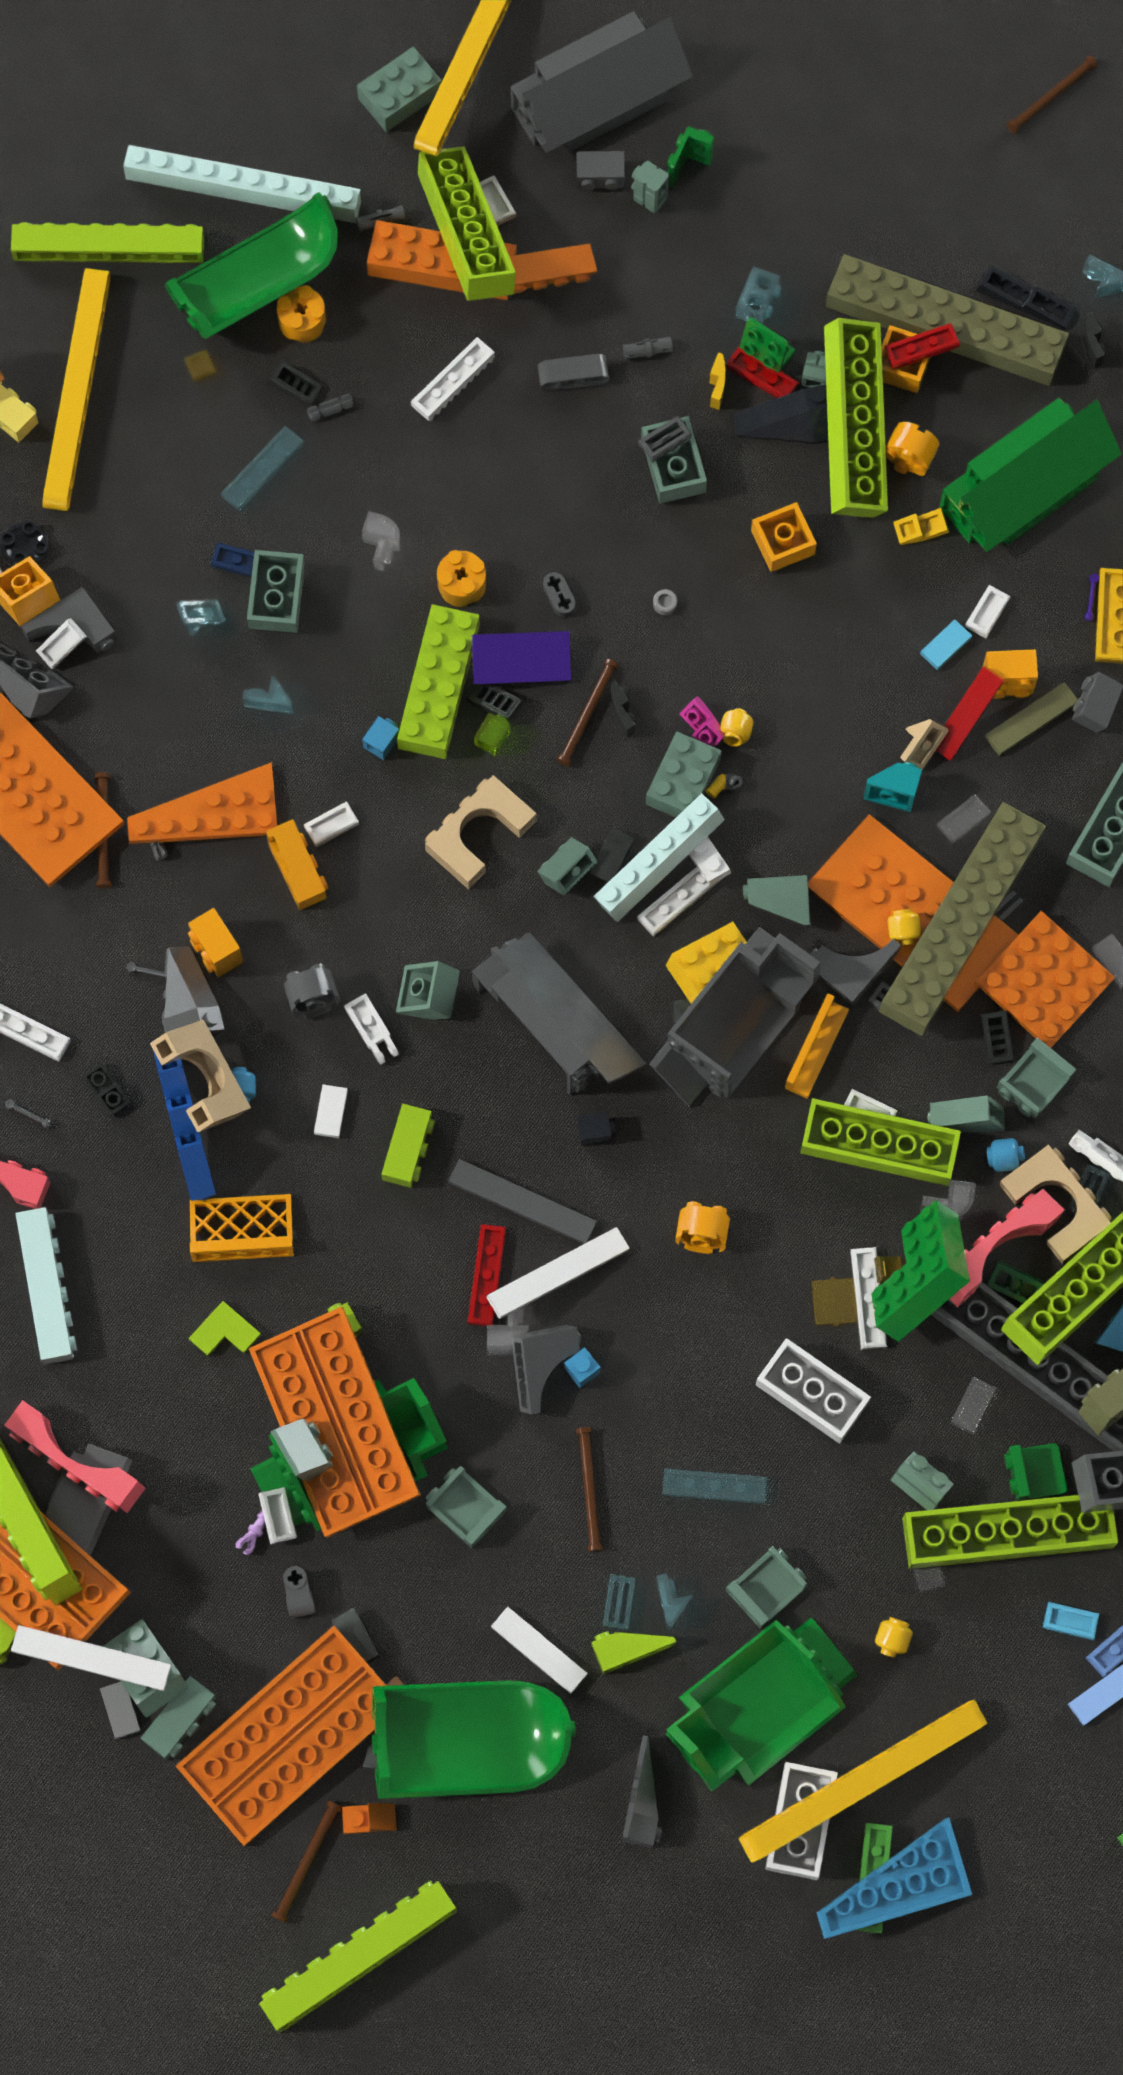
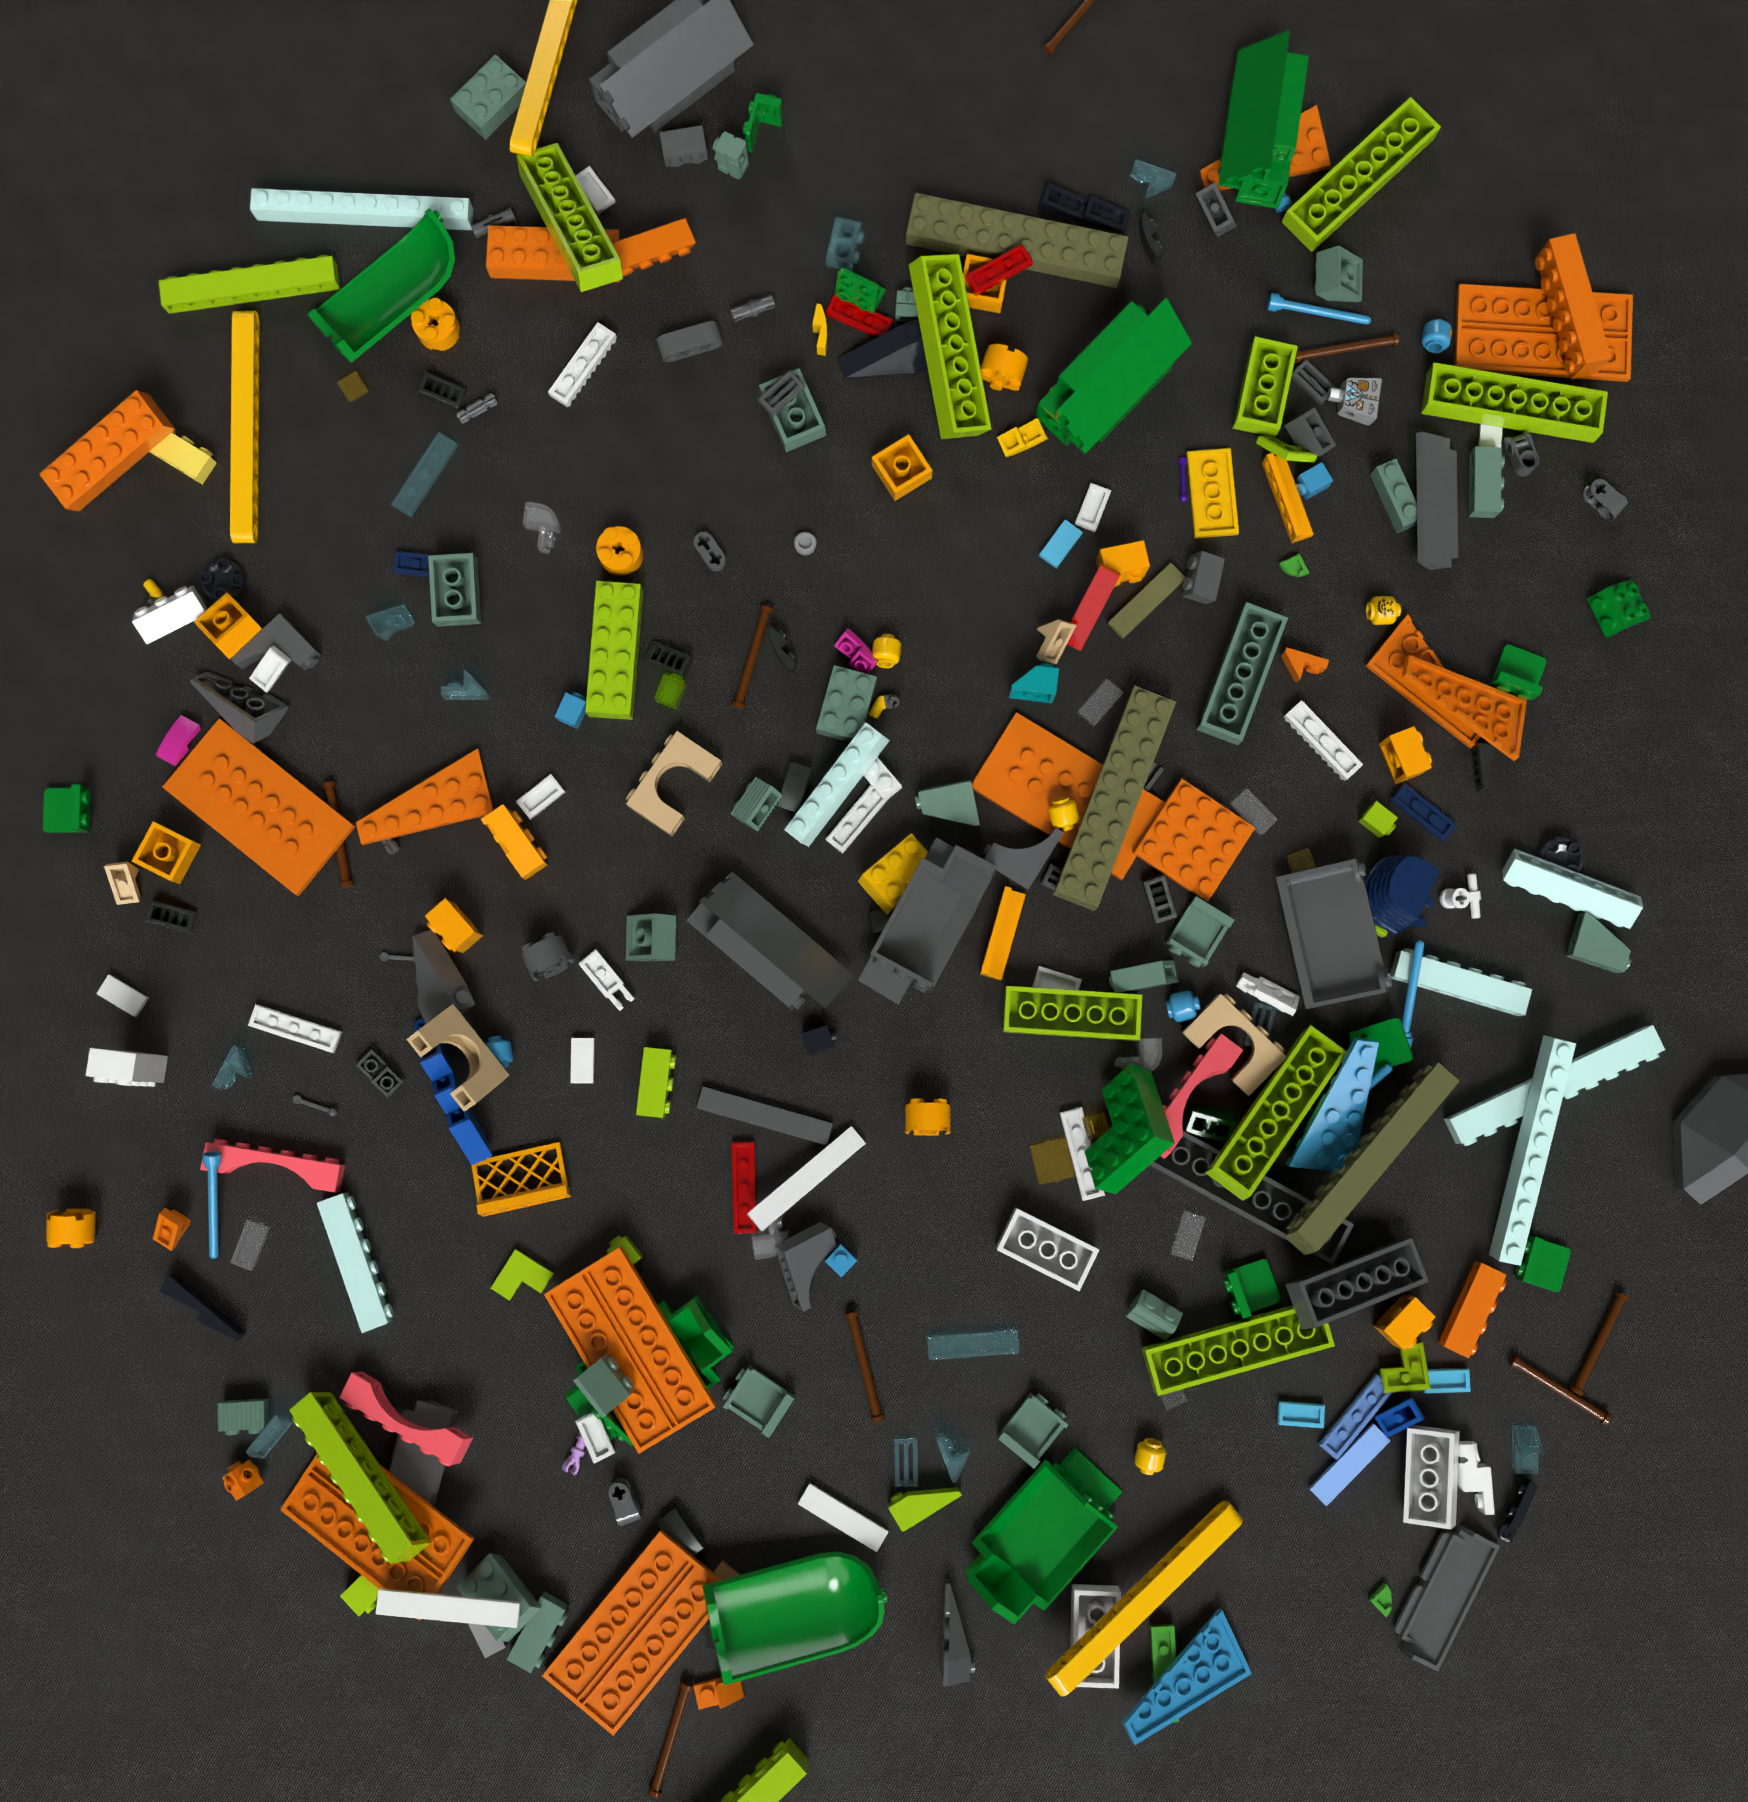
camera: 10 degrees left, 10 degrees up
(521, 657) = (684, 617): dark purple tile -> none

